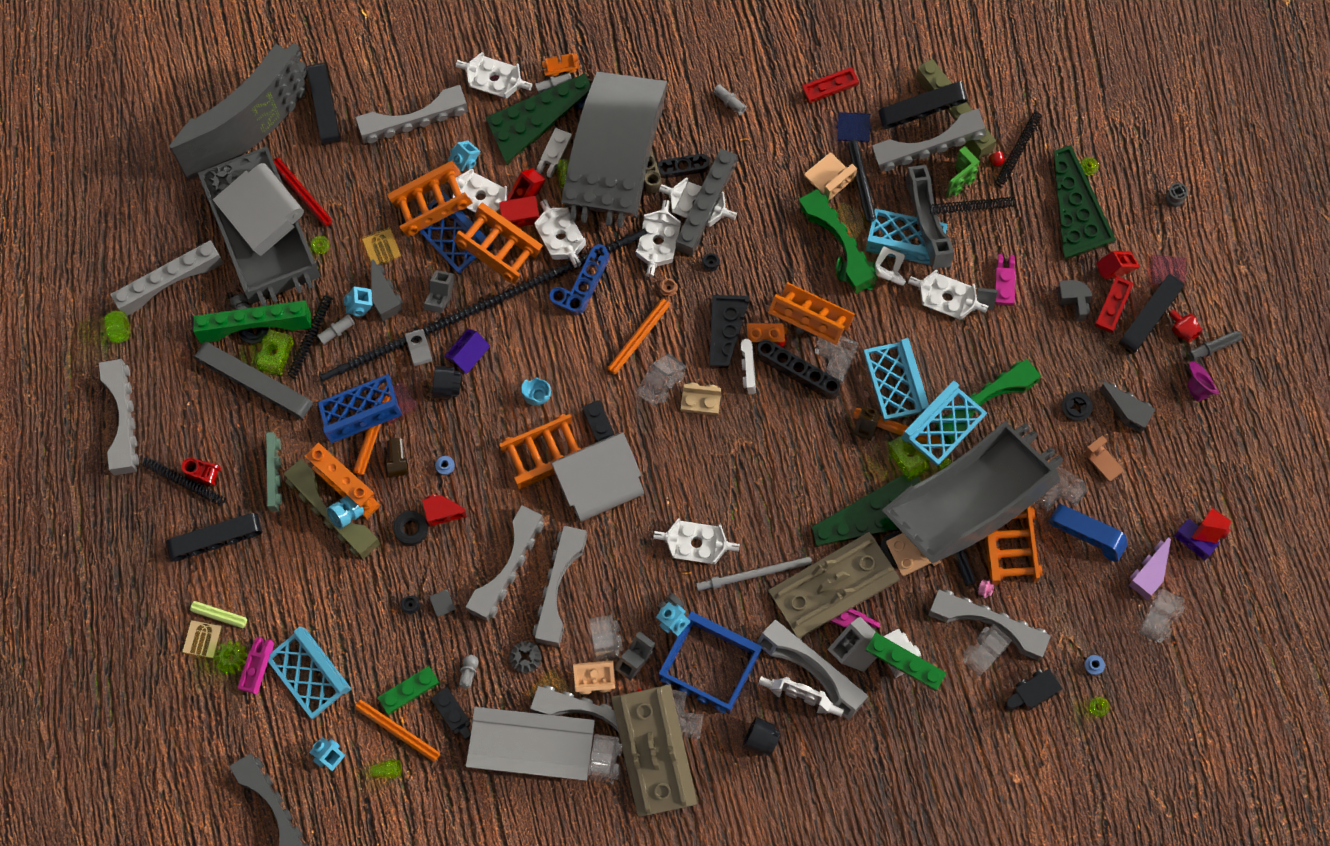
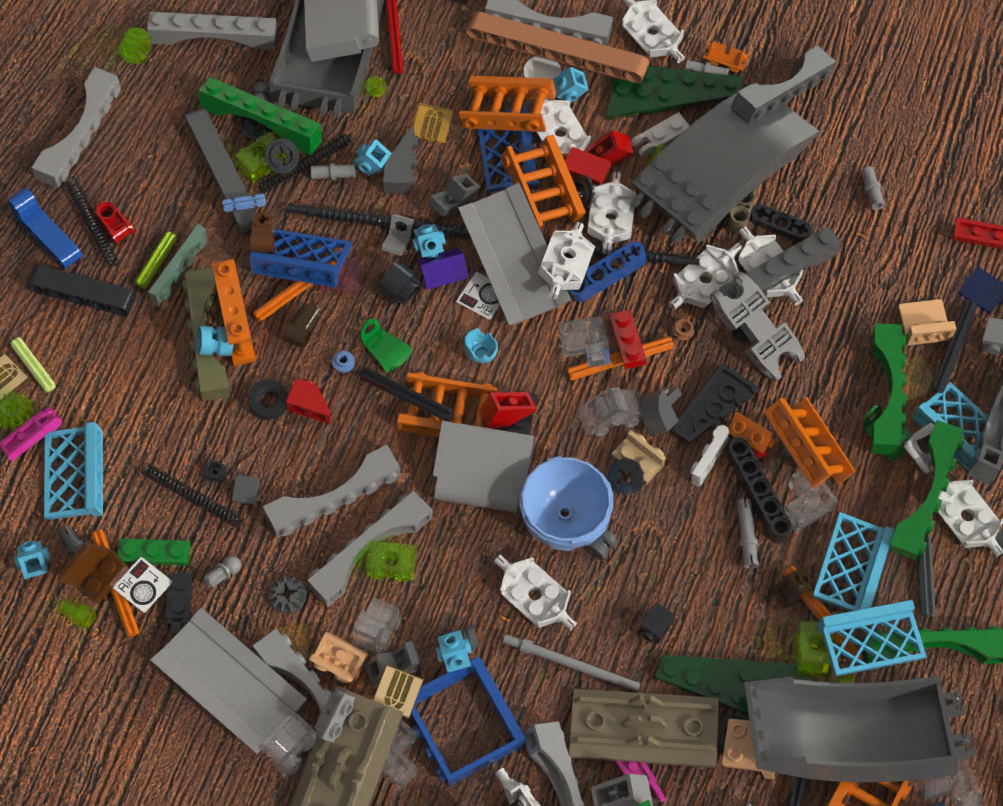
camera: 30 degrees right, 5 degrees down
(152, 510) = (43, 229): none -> blue beam
(252, 478) = (156, 260): none -> lime axle
(289, 394) = (244, 202): none -> medium blue axle
(300, 342) = (289, 162): none -> black gear
(321, 410) = (262, 233): none -> reddish brown piece
(351, 724) = (70, 540): none -> dark grey pin
(379, 732) = (94, 570): none -> reddish brown bracket
(407, 633) = (193, 495): none -> black piece
(419, 718) = (142, 584): none -> white sticker
(433, 156) = (541, 68): none -> white sticker
(434, 132) = (558, 47): none -> nougat beam
(444, 337) = (426, 234): none -> medium azure brick
(466, 435) = (385, 347): none -> green piece
(508, 460) = (406, 394): none -> black axle
(509, 352) = (479, 296): none -> white sticker
(514, 308) = (511, 253): none -> light grey hinge
(525, 224) = (585, 184): none -> black gear
(554, 300) = (565, 272): none -> white plate
(586, 575) = (381, 552): none -> clear neon green brick
(587, 424) = (506, 408): none -> red slope
(608, 336) = (586, 338): none -> clear brick
(610, 85) = (757, 100): none -> arch
(628, 726) = (331, 726): none -> light grey hinge
(635, 319) = (627, 339): none -> red plate
(653, 671) = (398, 690): none -> piece
(678, 451) = (568, 487): none -> light blue rock
(692, 357) = (657, 410): none -> dark grey brick
(707, 426) = (615, 476): none -> black gear
(708, 249) = (757, 326): none -> light grey piece
(718, 477) = (601, 546): none -> dark grey wheel
(793, 508) = (656, 623): none -> black brick
(815, 410) = (748, 542): none -> light grey pin
(902, 258) = (911, 532): none -> green arch
(946, 353) = (926, 579): none -> dark grey axle

